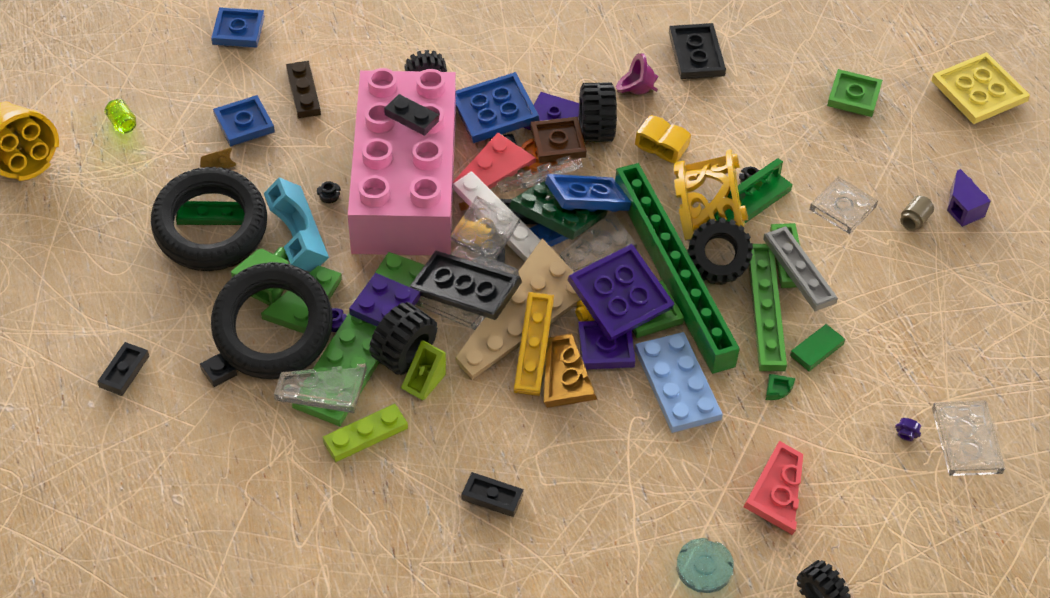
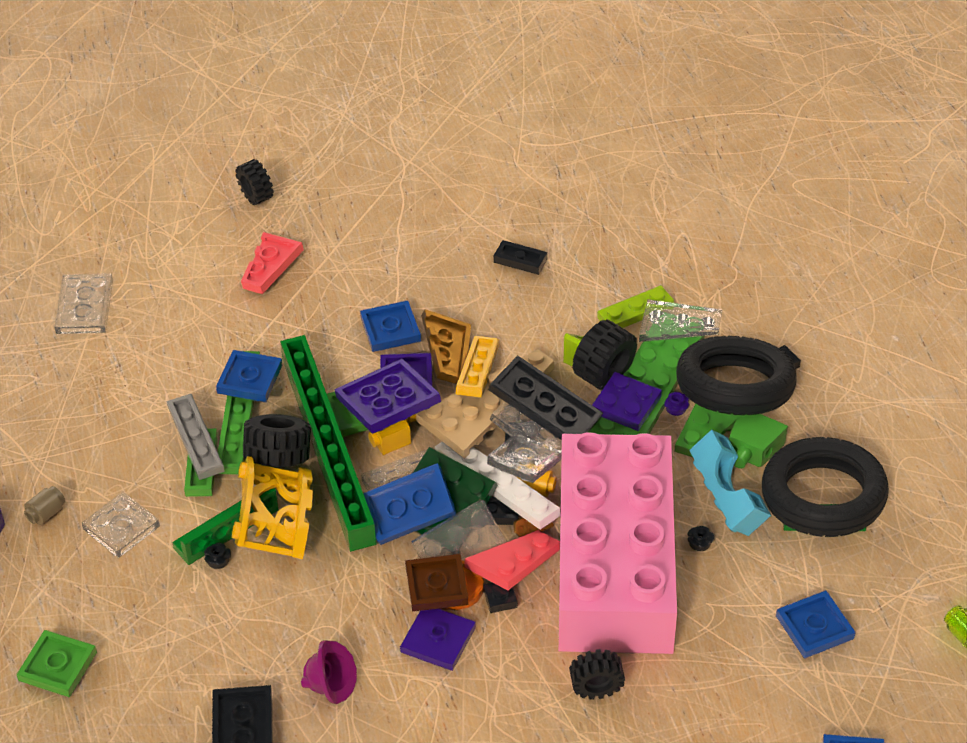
camera: 175 degrees left, 5 degrees down
(123, 368) = (872, 356): black plate -> none
(218, 159) = (830, 573): pearl gold piece -> none
(303, 89) = (751, 677): dark brown plate -> none
(411, 114) = (609, 522): black plate -> none
(495, 107) = (510, 634): blue plate -> none
(598, 112) = (386, 602): black tyre -> none
(630, 403) = (390, 326): none -> blue plate
(662, 139) = (311, 596): yellow brick -> none
(678, 382) = (339, 347): light blue plate -> none
(704, 565) = (344, 215): clear light blue tile -> none
(763, 323) = (249, 376): none -> blue plate
(778, 386) = (246, 344): green tile -> none
(817, 347) = (197, 377): green tile -> none
(908, 429) = (137, 305): dark purple plate -> none

